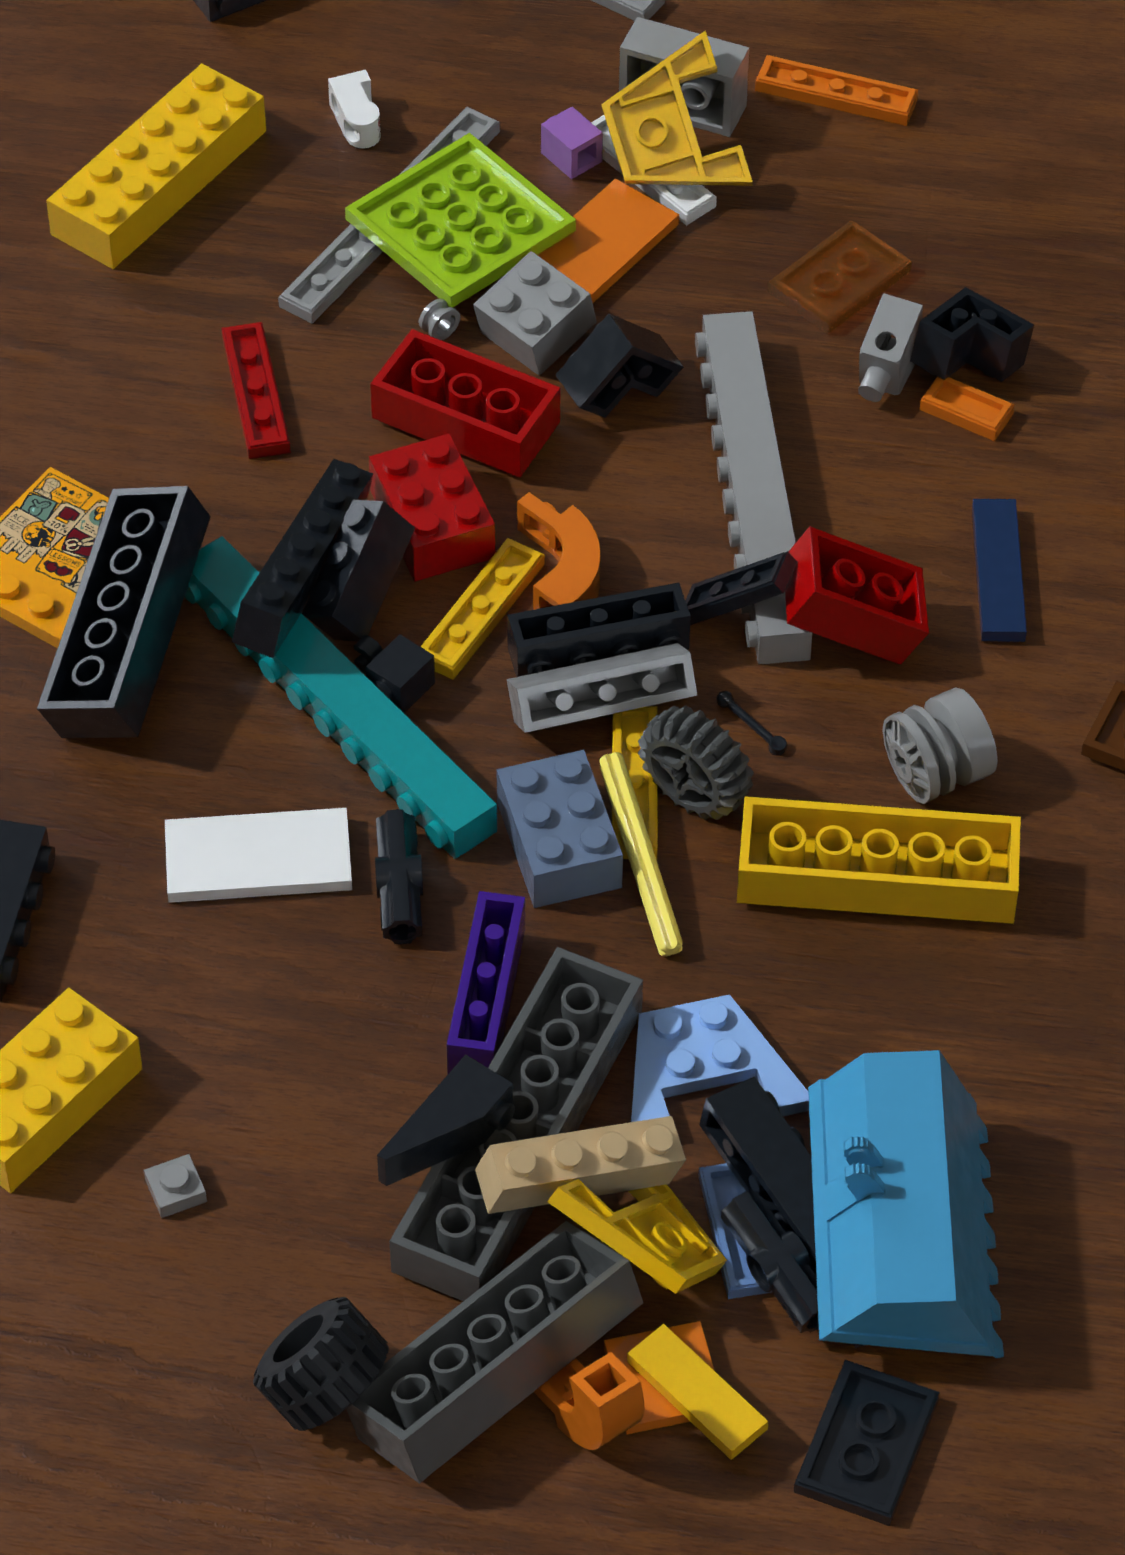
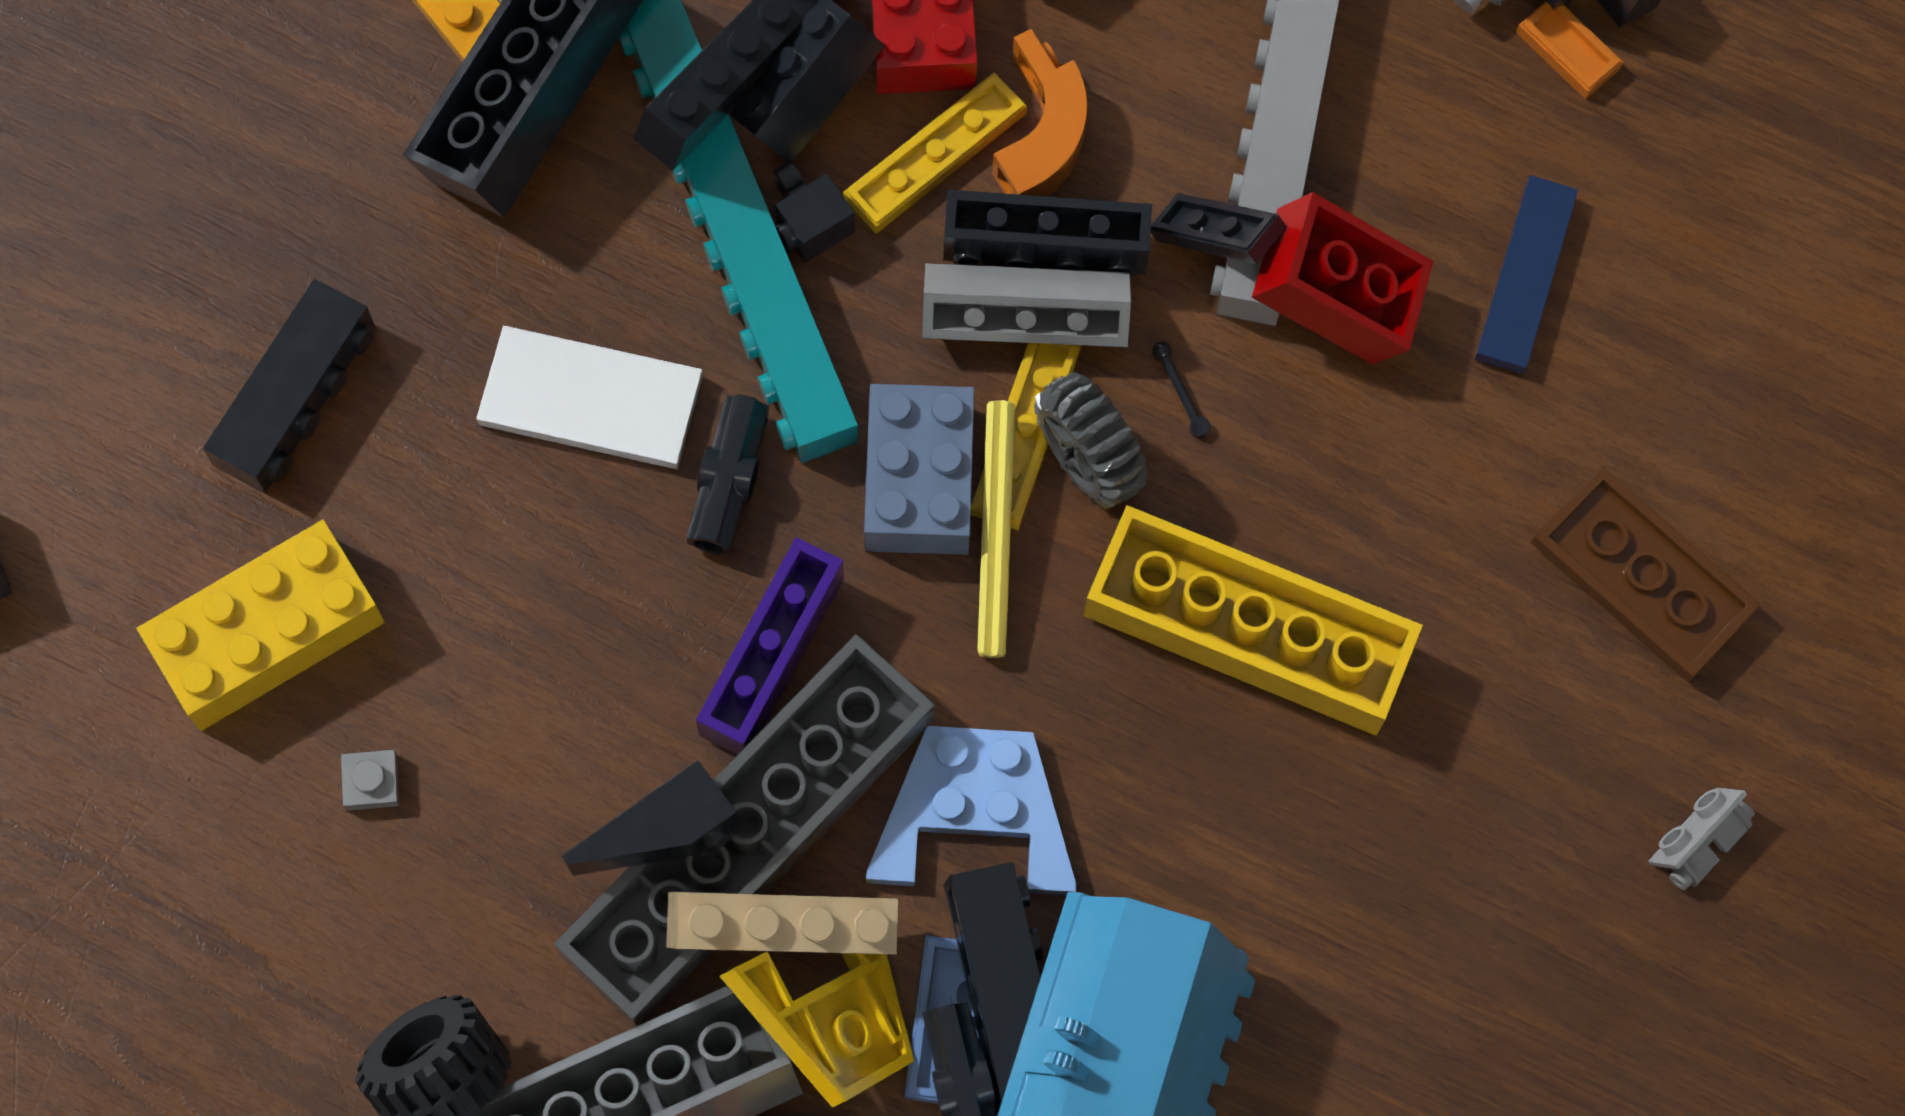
camera: 15 degrees right, 20 degrees up
(940, 745) = (1380, 496): light grey wheel -> none

